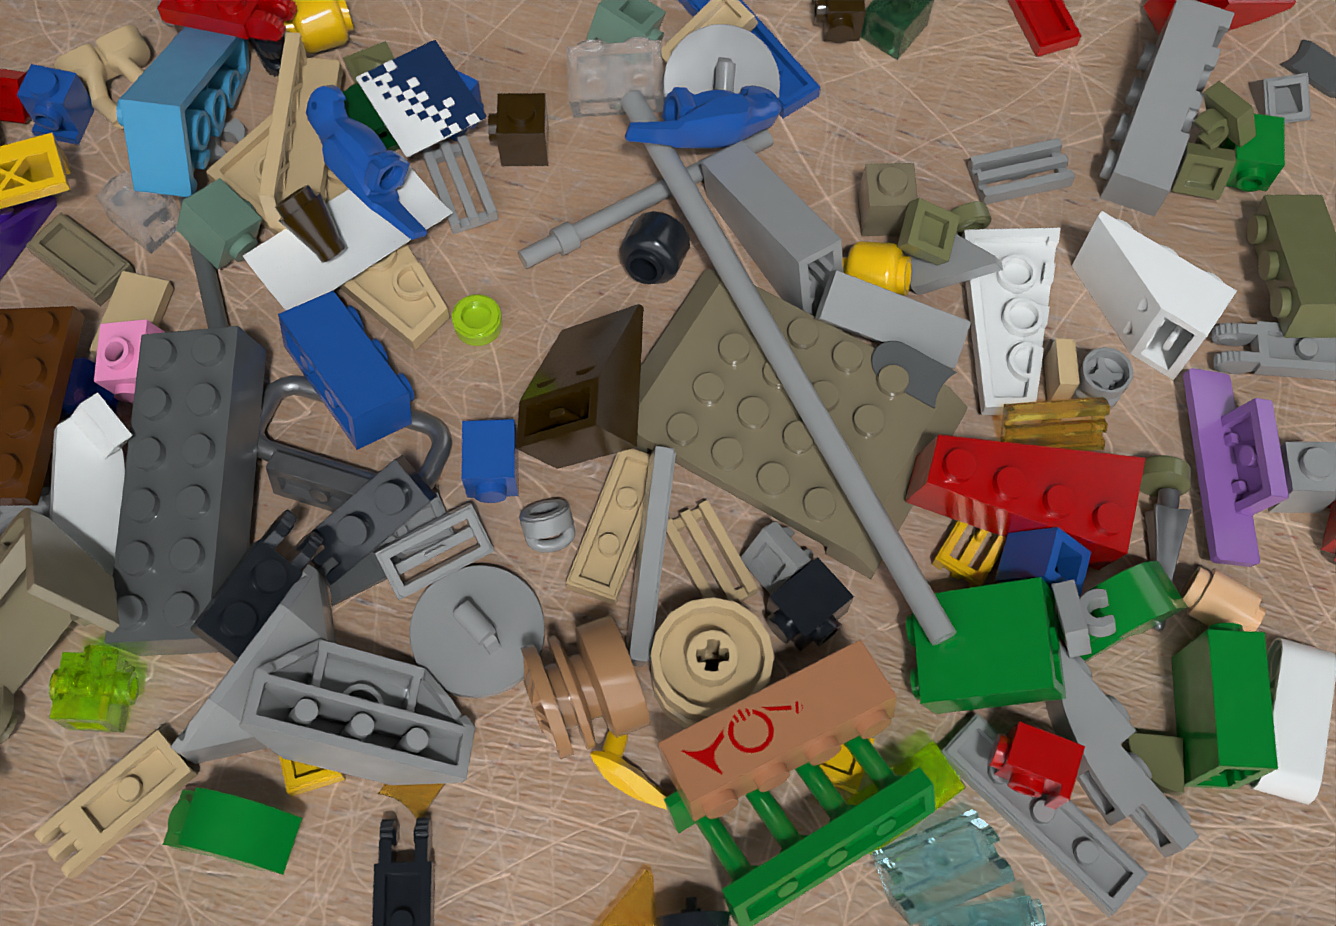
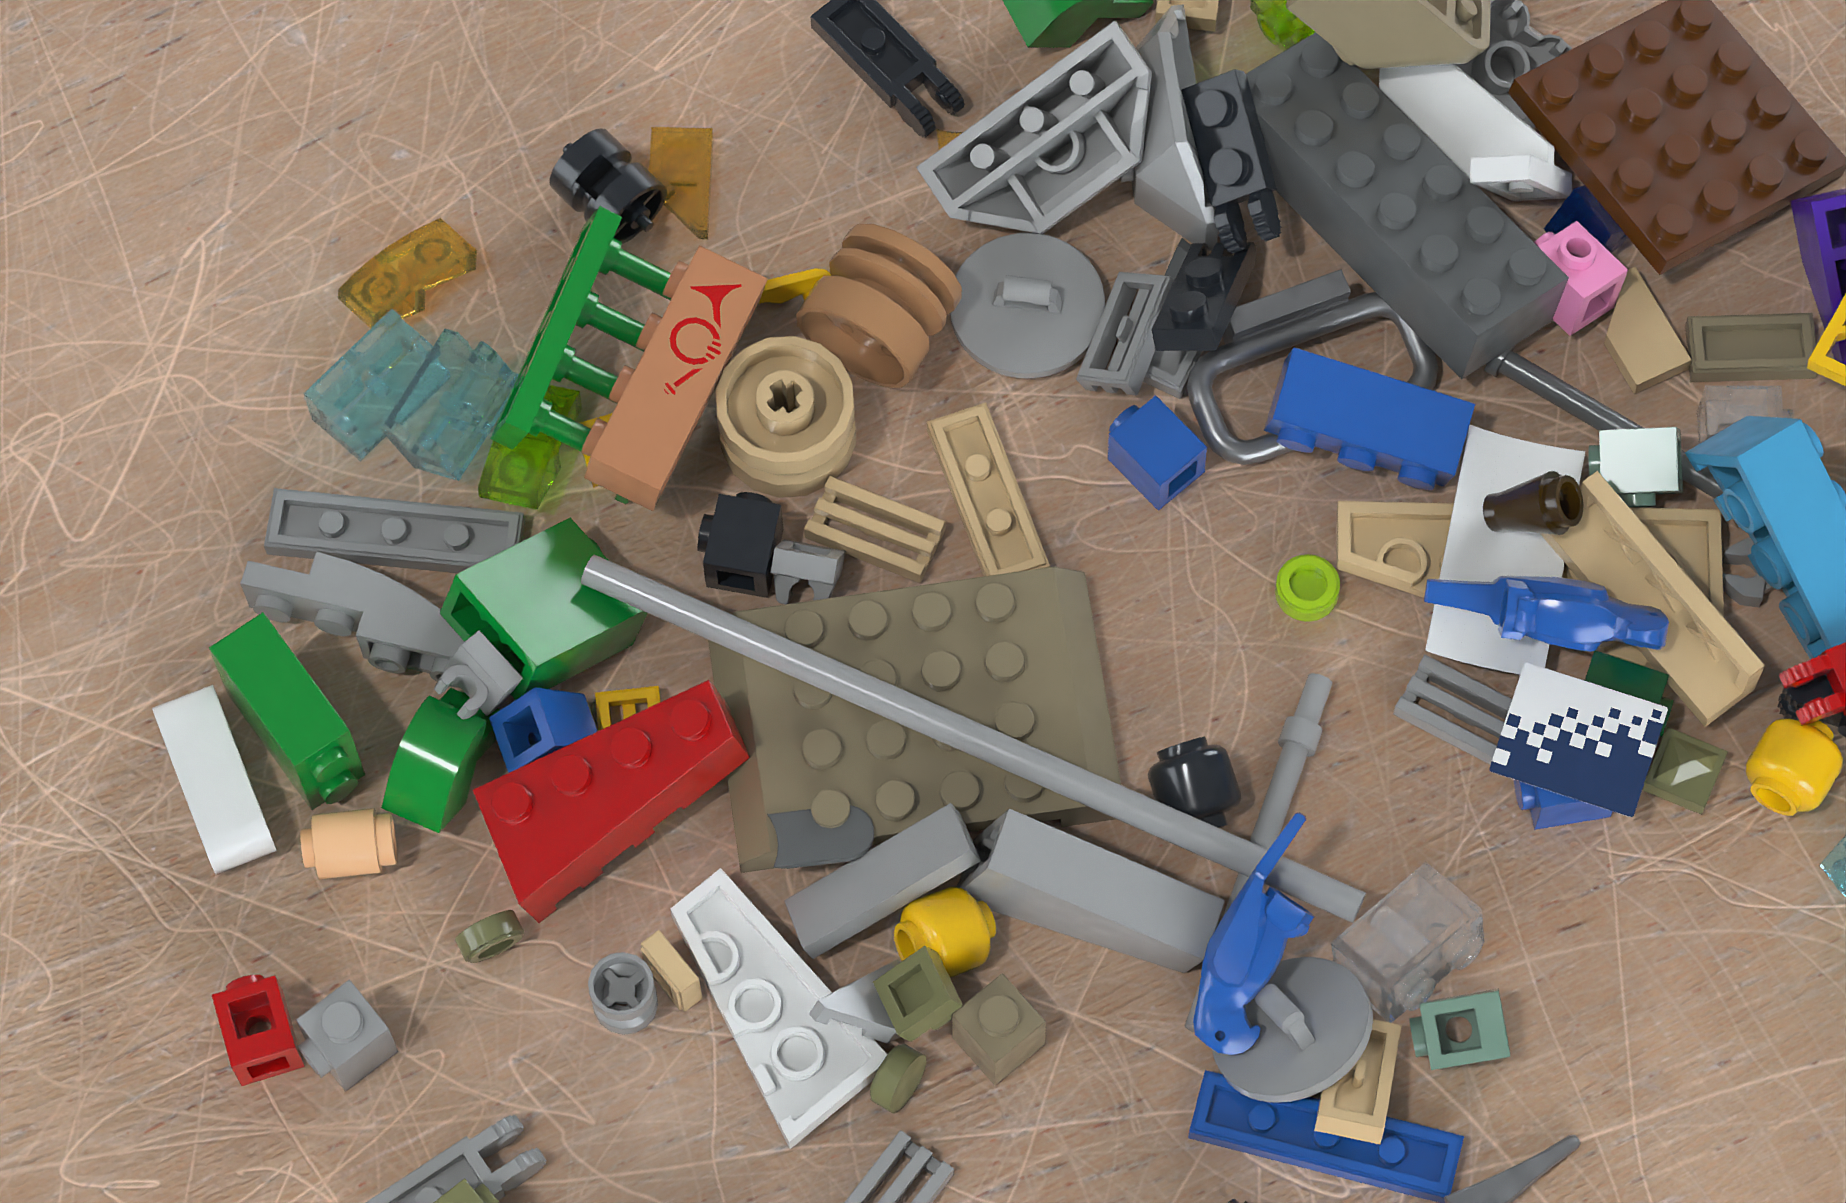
camera: 145 degrees right, 0 degrees up
(520, 129) = (1452, 806): dark brown brick -> none
(548, 520) = (1051, 439): light grey tile -> none
(585, 392) = (1122, 567): dark brown slope -> none
(650, 555) = (925, 468): light grey tile -> none
(1037, 763) = (429, 542): red brick -> none
(1052, 431) = (637, 904): clear yellow tile -> none
(1150, 294) = (619, 1102): white slope -> none
(1163, 758) = (323, 654): olive tile -> none
(1166, 532) = (451, 885): flat silver piece -> none
(1235, 464) = (434, 1001): medium lavender bracket -> none

